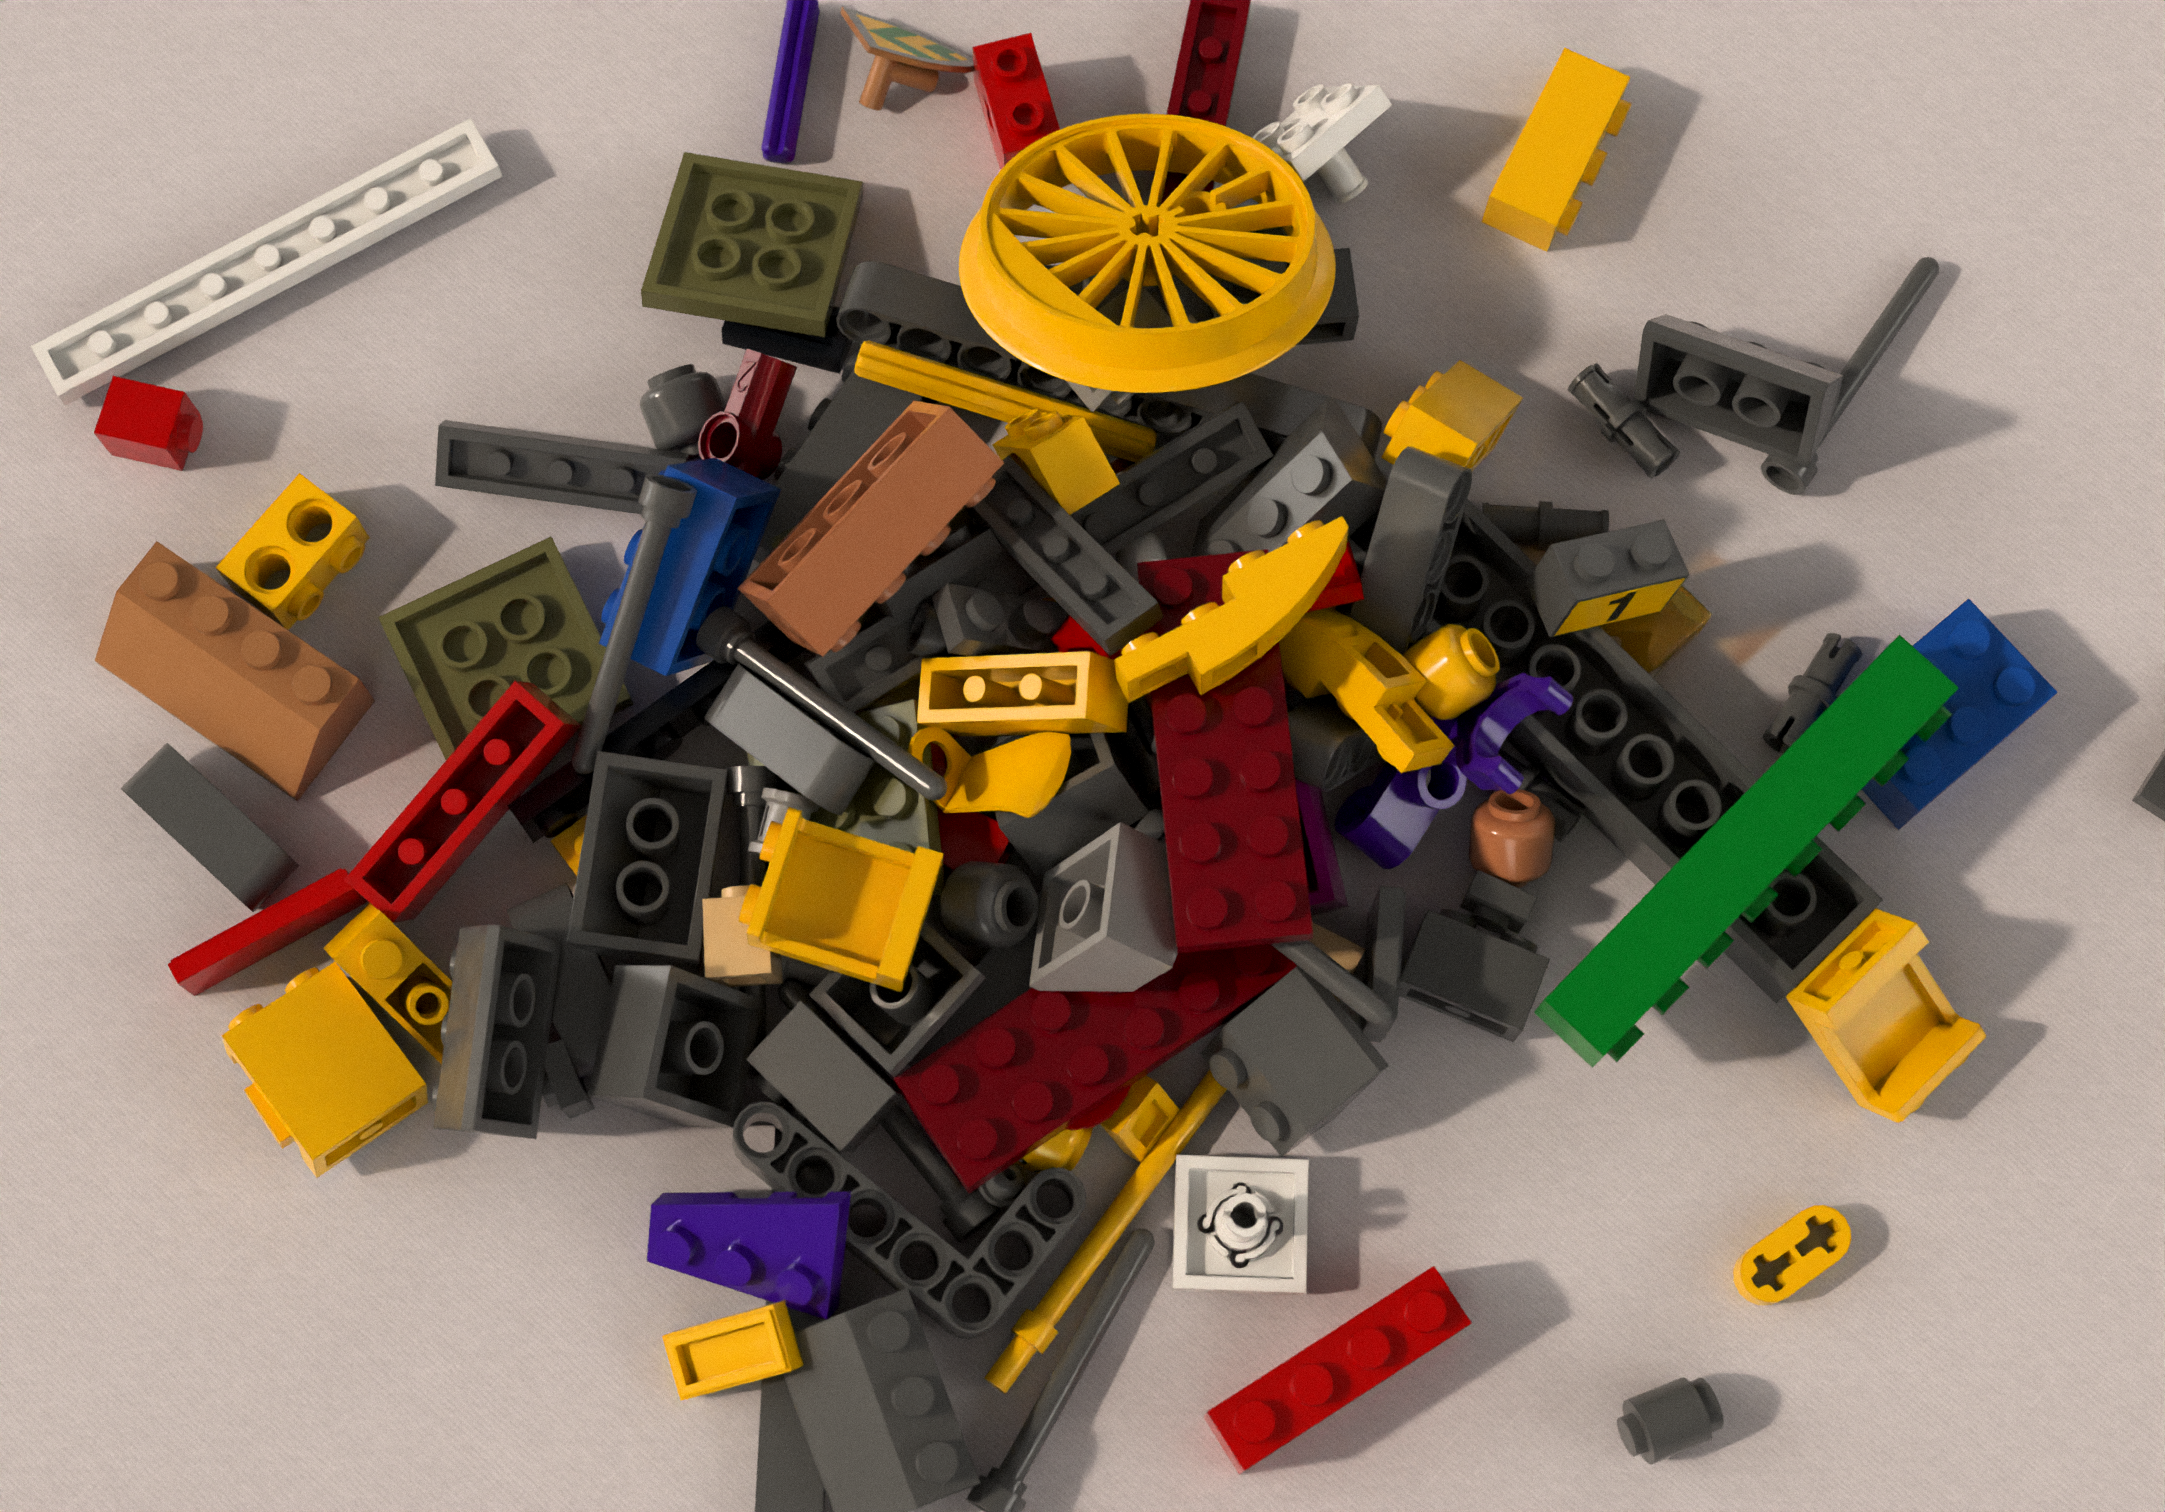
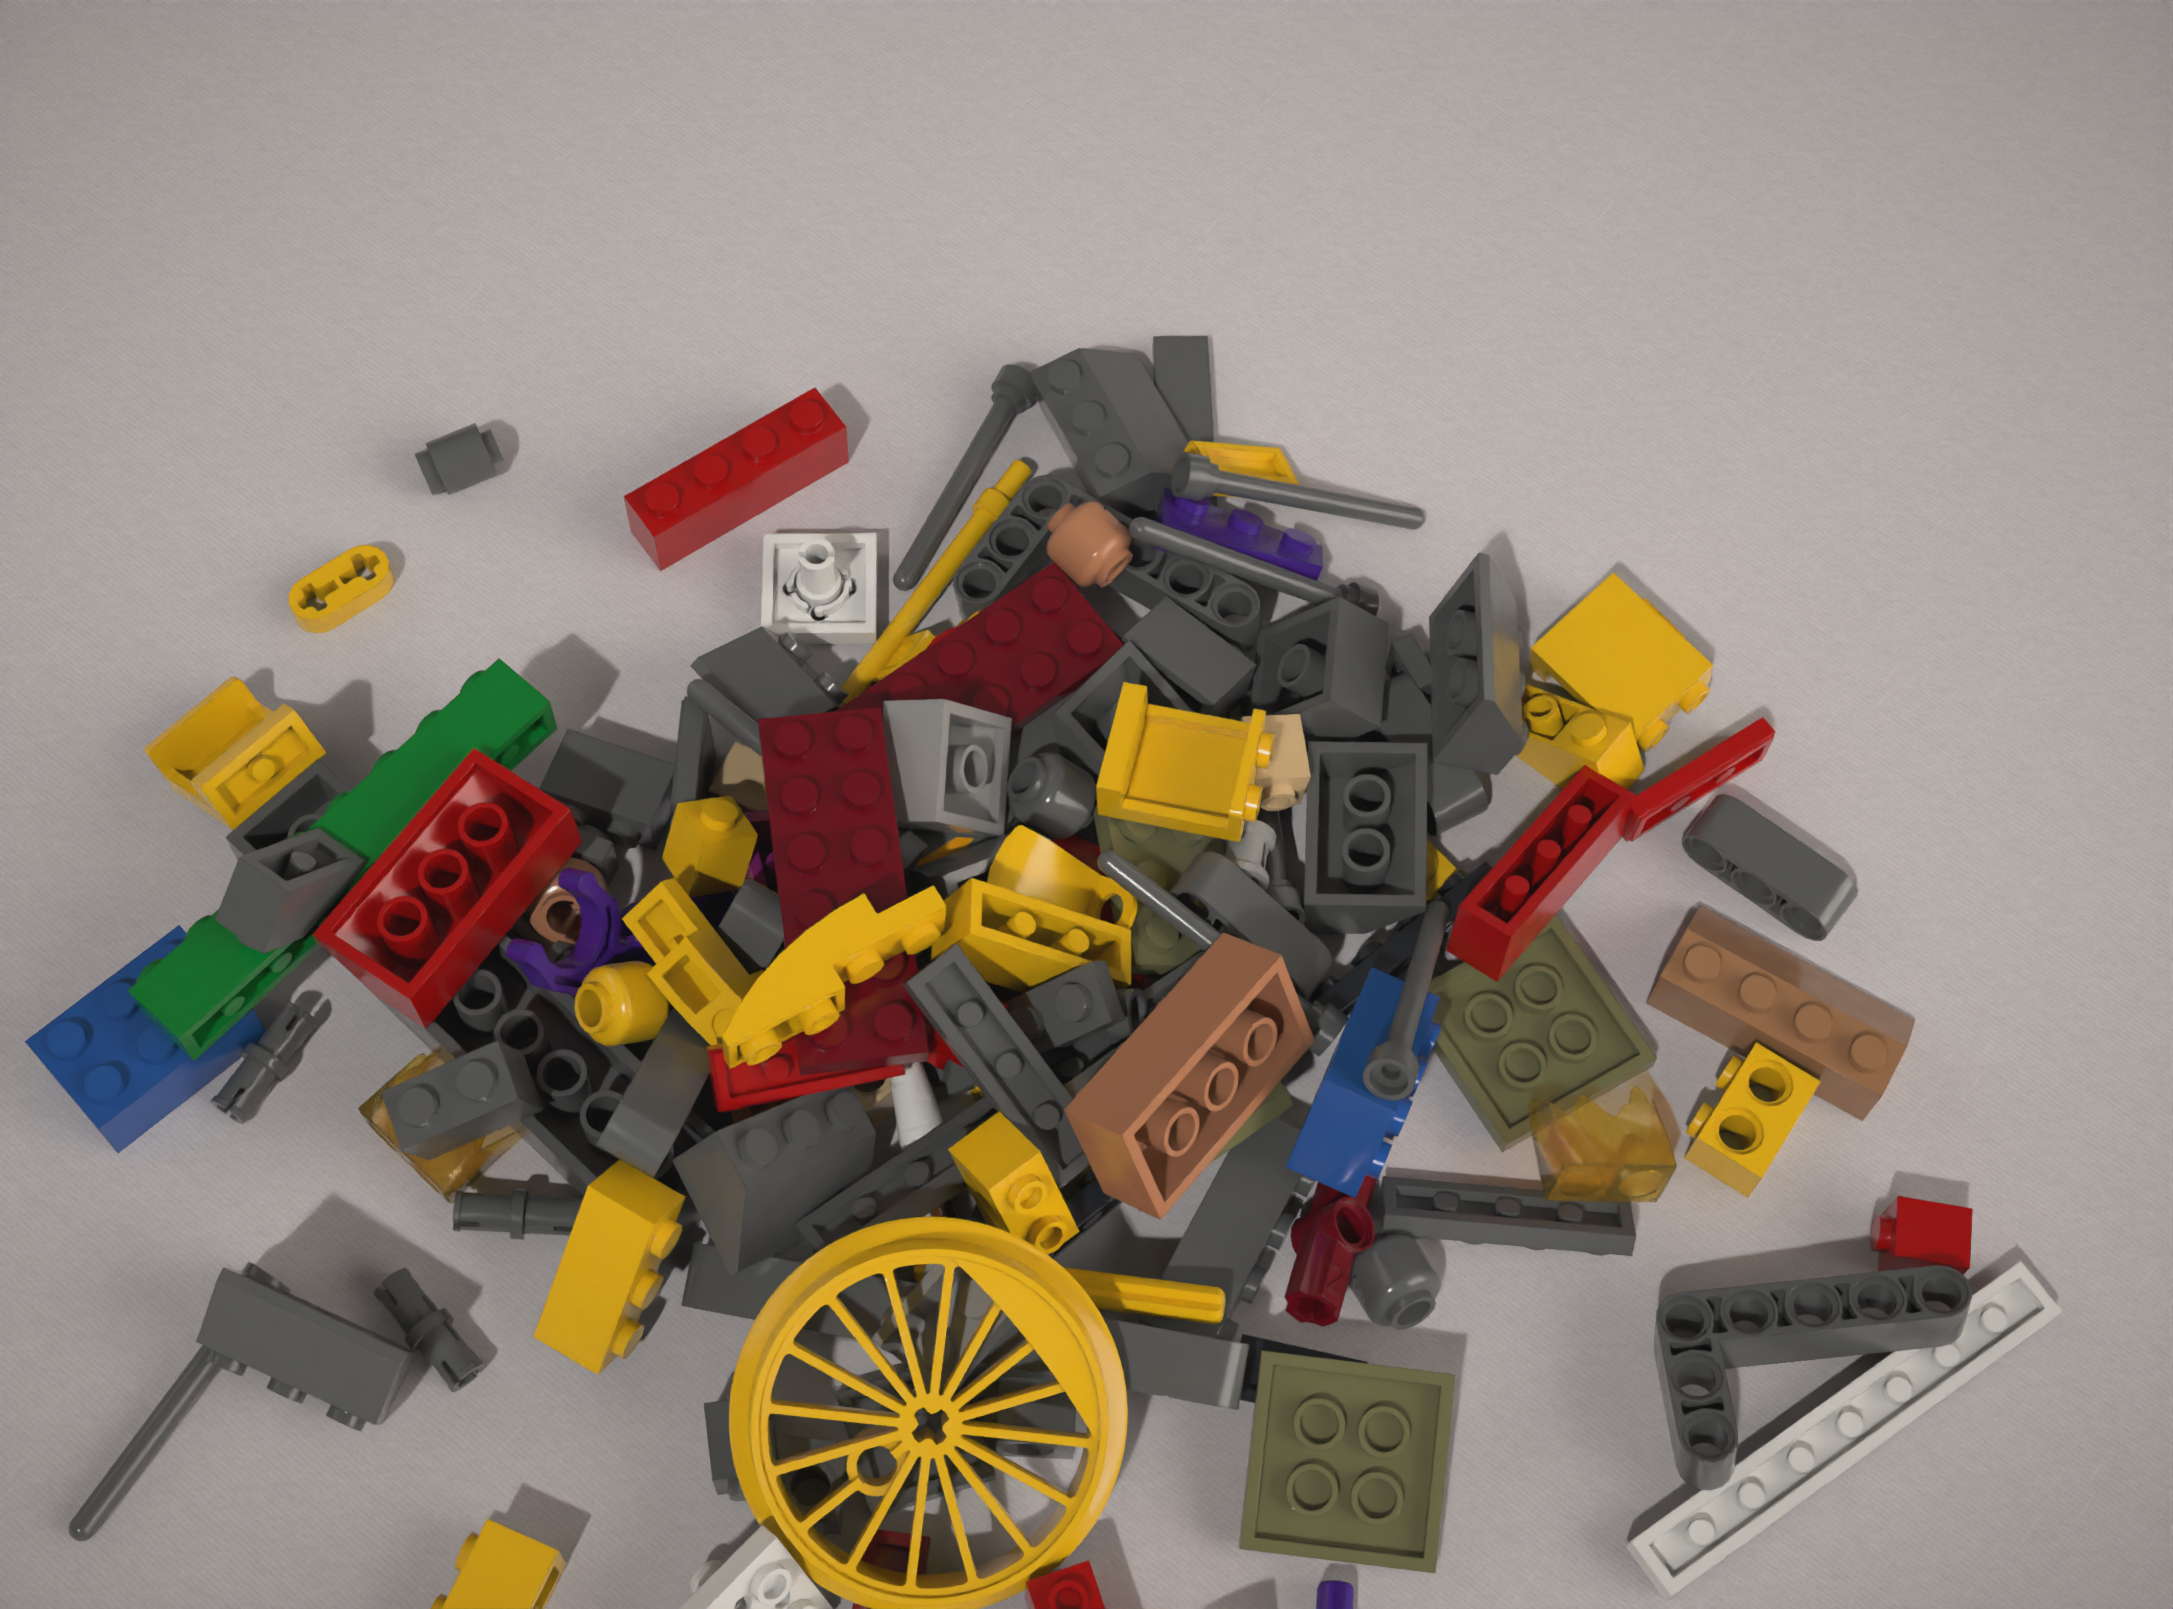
camera: 175 degrees right, 10 degrees down
(314, 327) = (1785, 1339): none -> dark grey beam
(469, 510) = (1601, 1154): none -> clear yellow piece
(624, 1170) = (1250, 567): none -> dark grey piece
(789, 1296) = (1199, 478): none -> dark grey piece
(926, 1204) = (1088, 543): none -> nougat head
(1362, 853) = (709, 846): none -> yellow brick
(1638, 793) = (450, 887): none -> red slope
(1804, 770) = (286, 889): none -> dark grey slope

